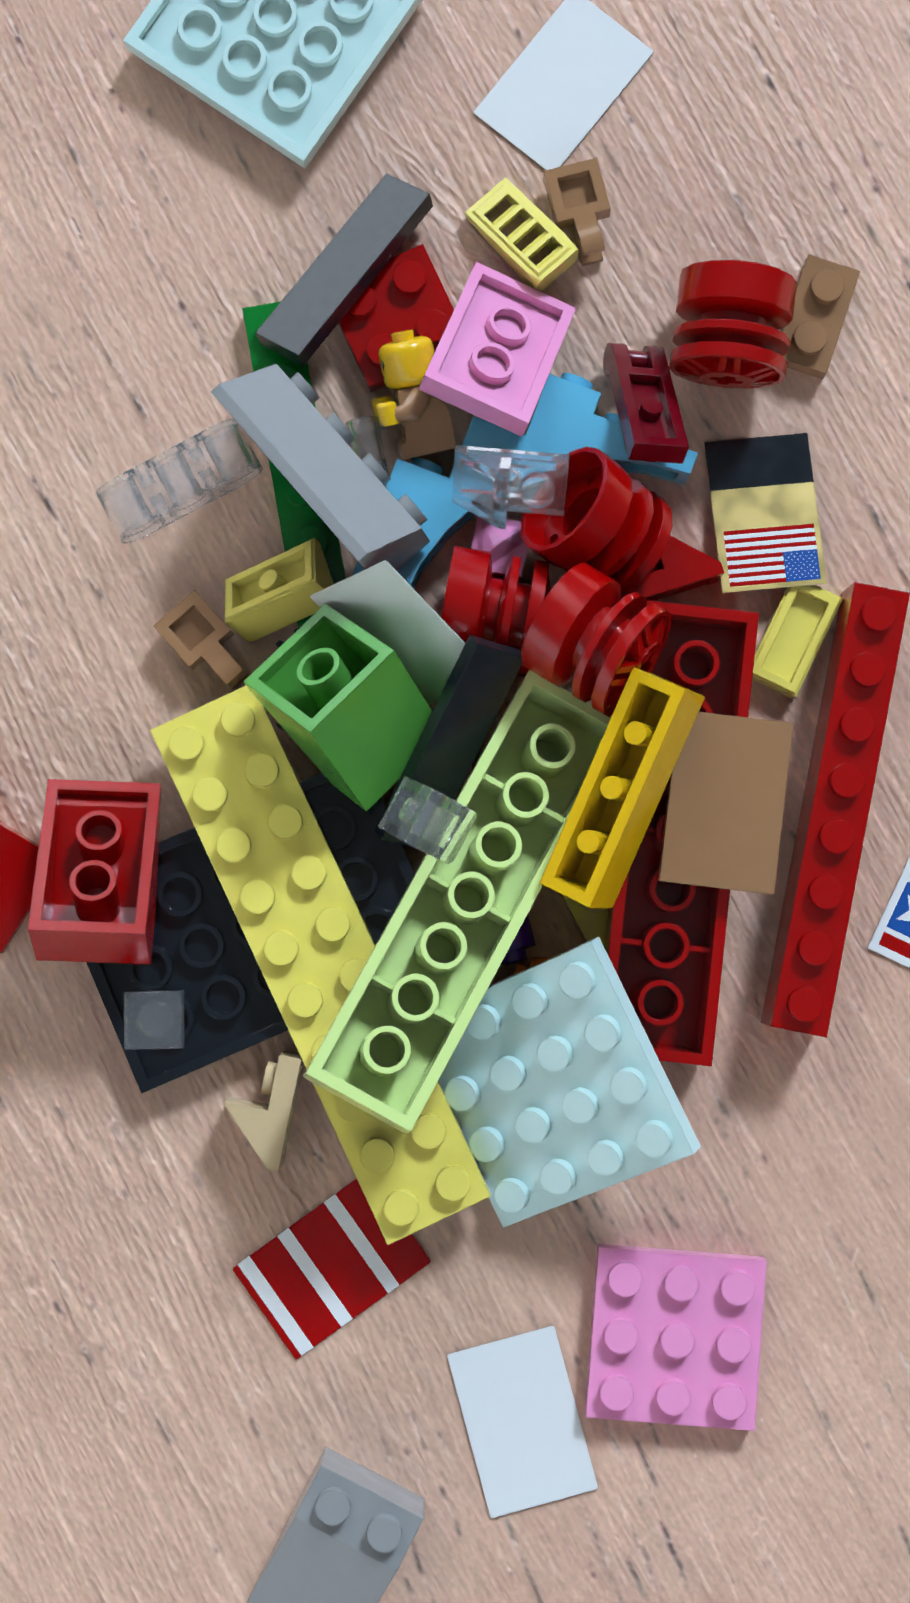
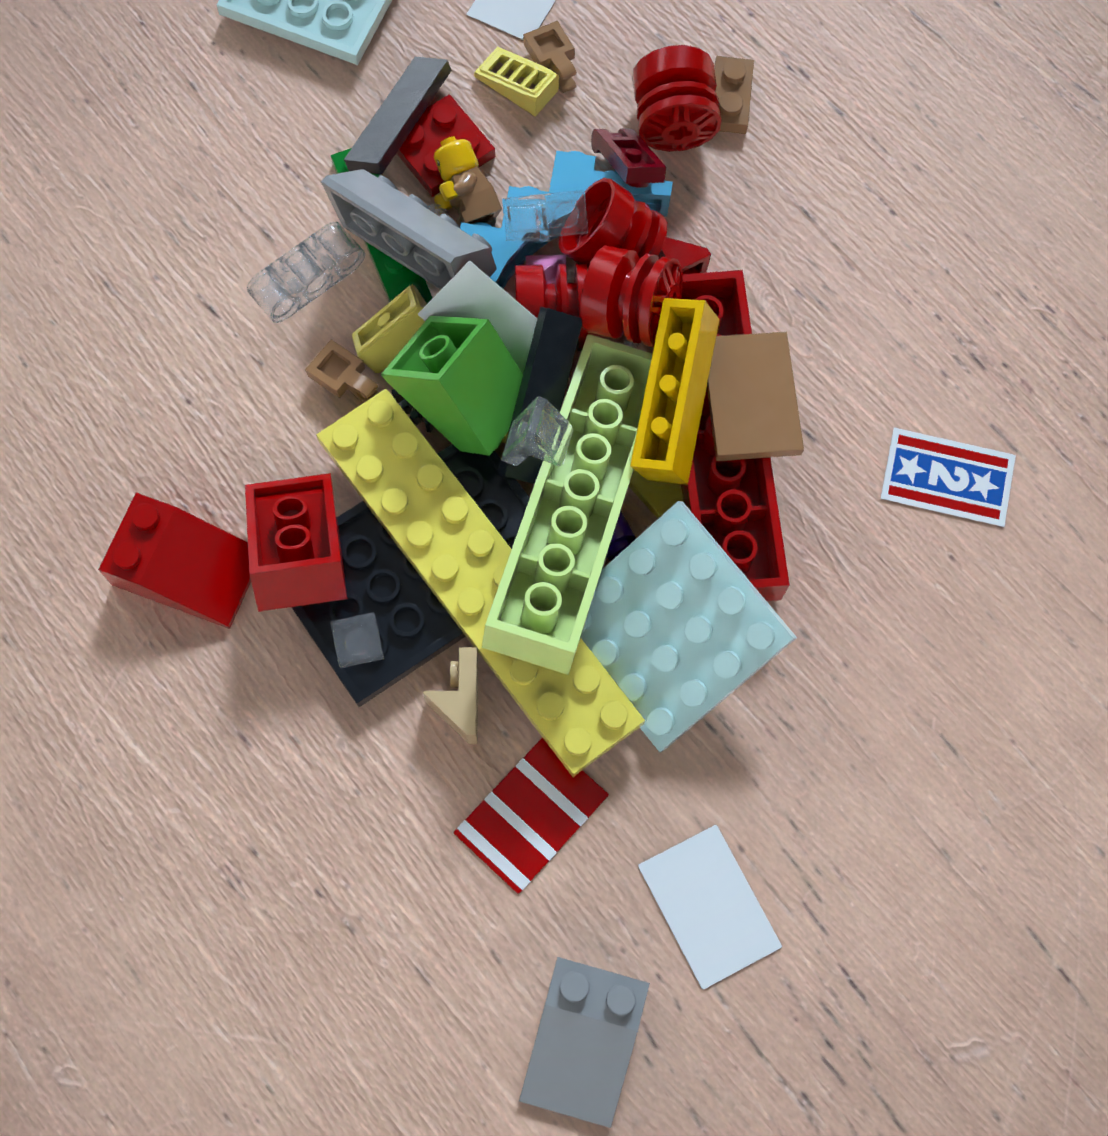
camera: 15 degrees left, 15 degrees down
(498, 349) = (516, 142): bright pink plate -> none
(675, 1337) = (813, 811): bright pink plate -> none
(765, 513) = (729, 220): sticker -> none
(794, 638) = (771, 294): light yellow tile -> none
(835, 809) = (831, 406): red brick -> none

